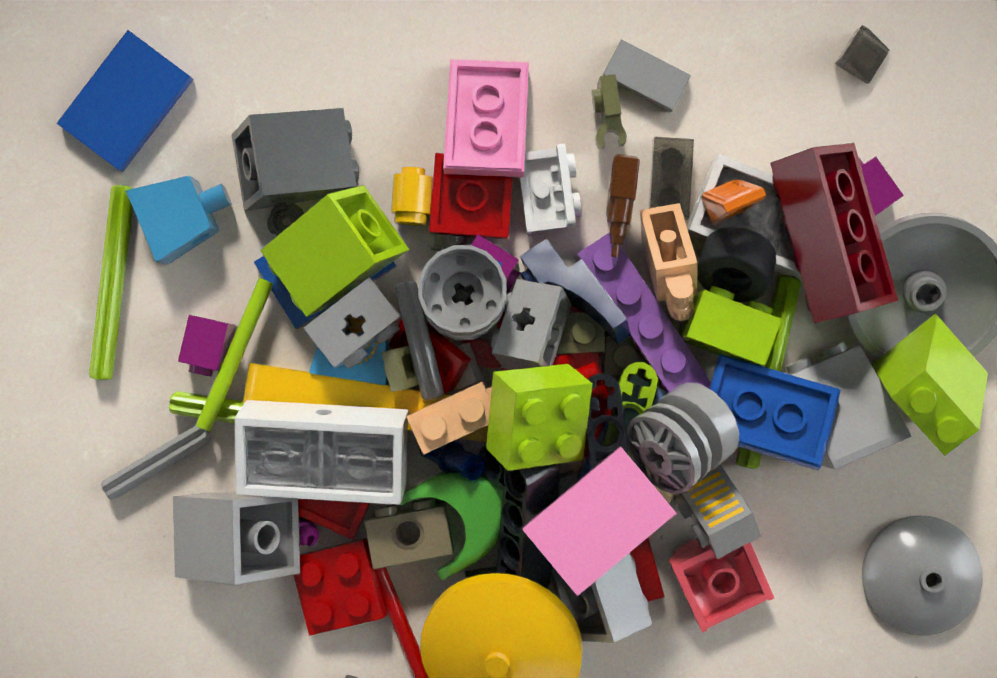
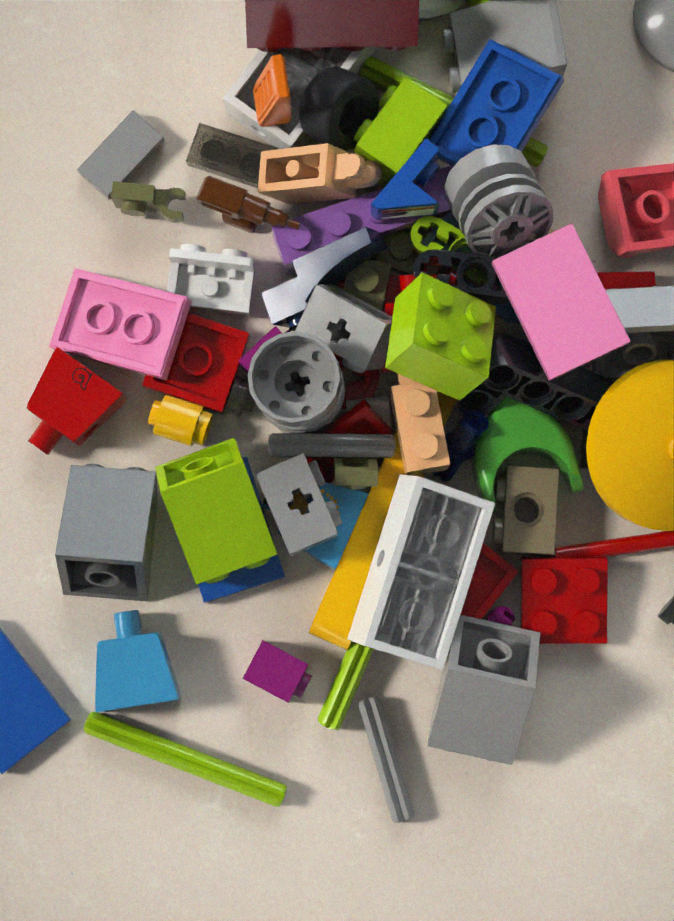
camera: 80 degrees left, 5 degrees down
(234, 354) = (296, 643): lime bar -> none
(279, 214) = (159, 560): clear smoke plate -> none
(402, 92) = (70, 402): none -> red torso
(666, 345) = (402, 195): none -> blue slope
(718, 513) = (584, 190): light grey brick -> none

